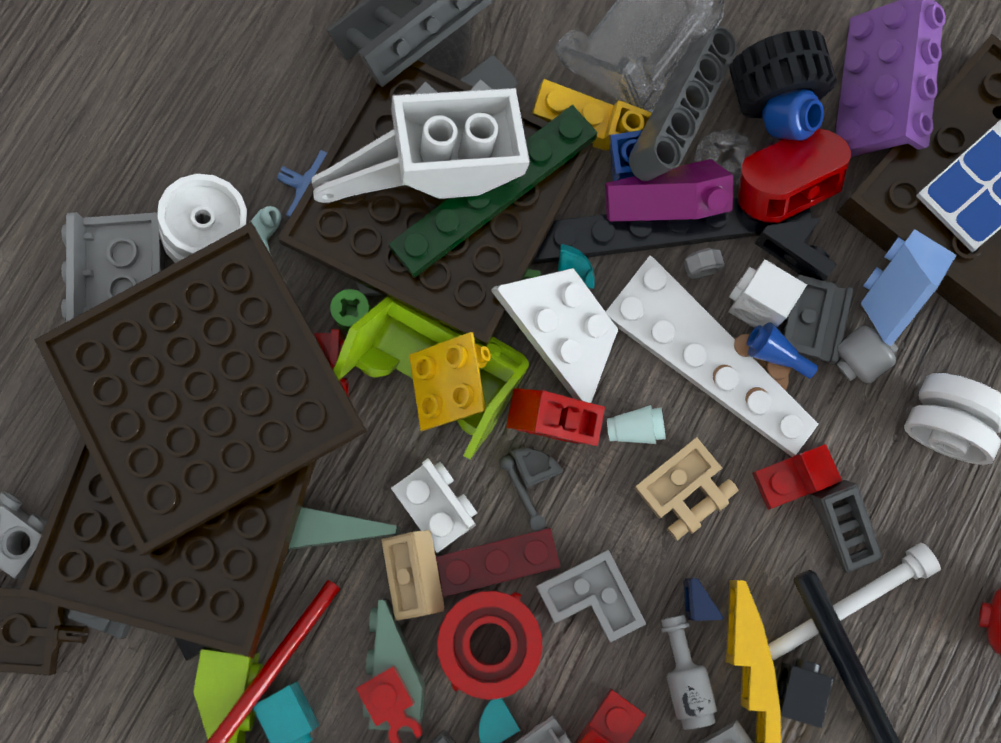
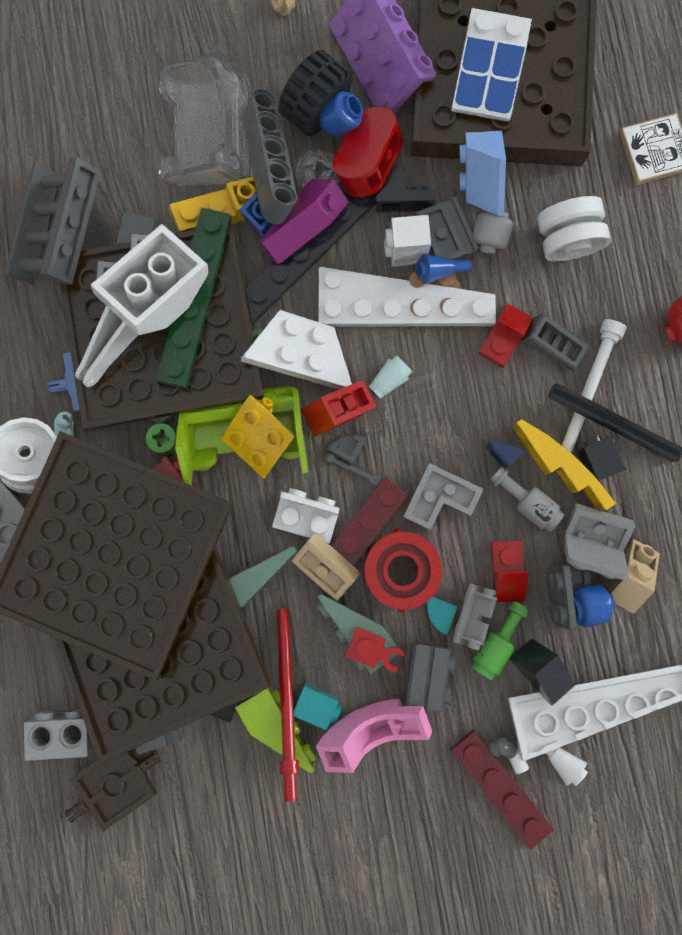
camera: 40 degrees left, 5 degrees up
(573, 258) = (275, 303): teal tile -> none
(680, 477) = (438, 388): tan plate -> none
(703, 263) = (354, 247): light grey tile -> none

